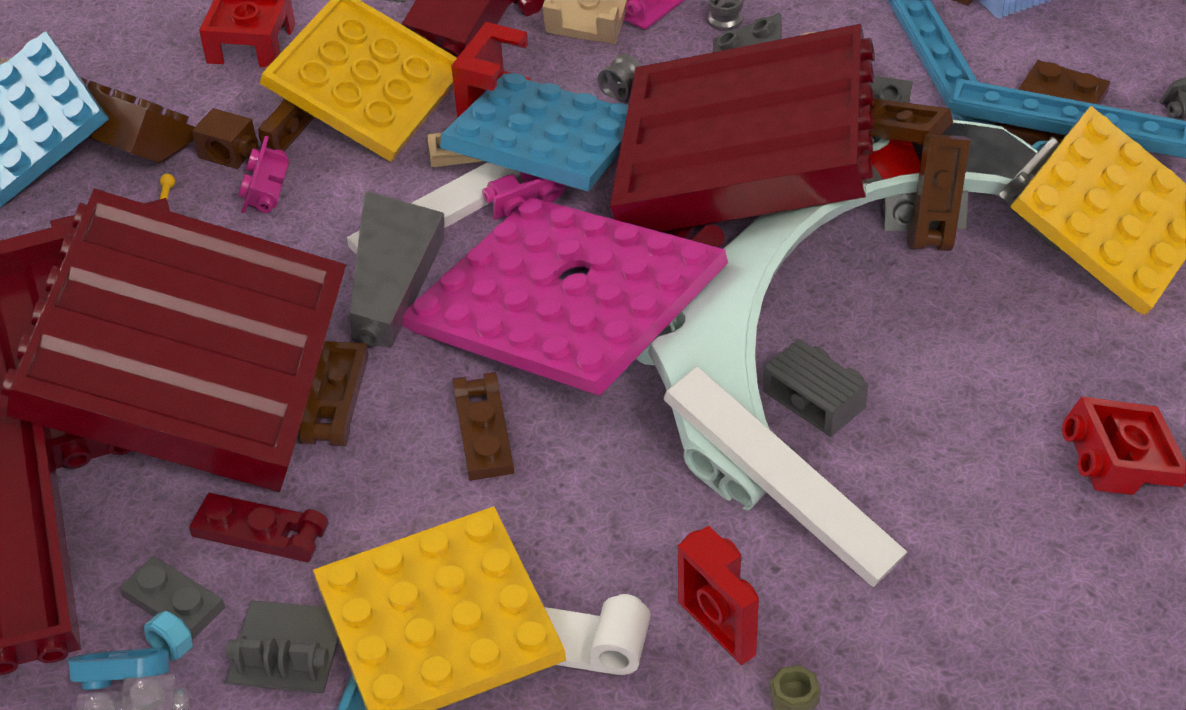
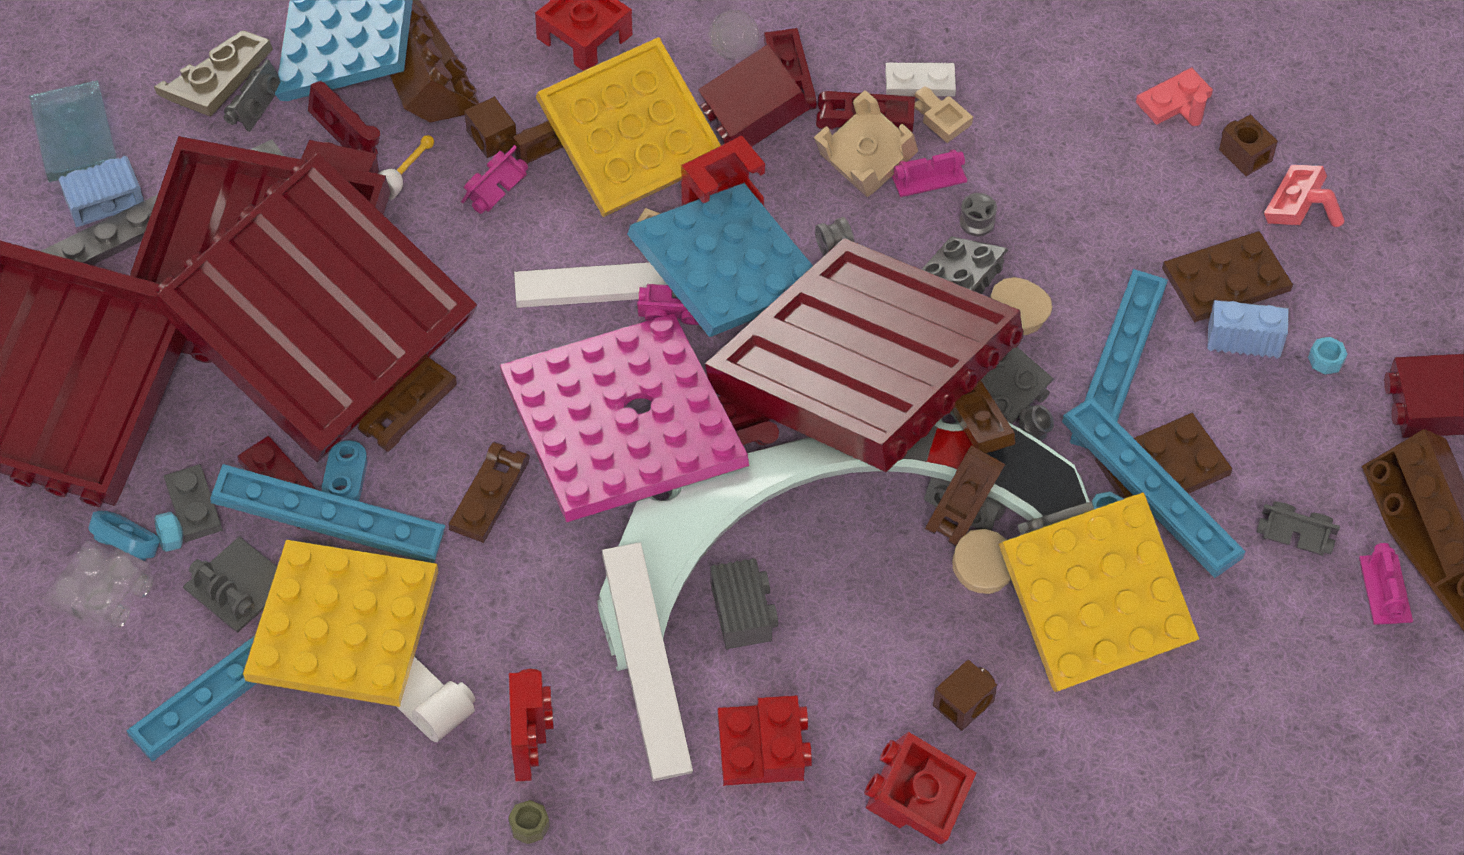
camera: 30 degrees right, 10 degrees up
(56, 195) = (341, 120): none -> dark red plate
(319, 483) = (345, 471): none -> dark azure plate
(331, 525) = (327, 513): none -> dark azure tile
(391, 265) = (518, 320): flat silver slope -> none
(947, 489) = (764, 741): none -> red plate
(988, 246) = (980, 562): none -> tan piece
(1084, 351) = (965, 694): none -> reddish brown brick

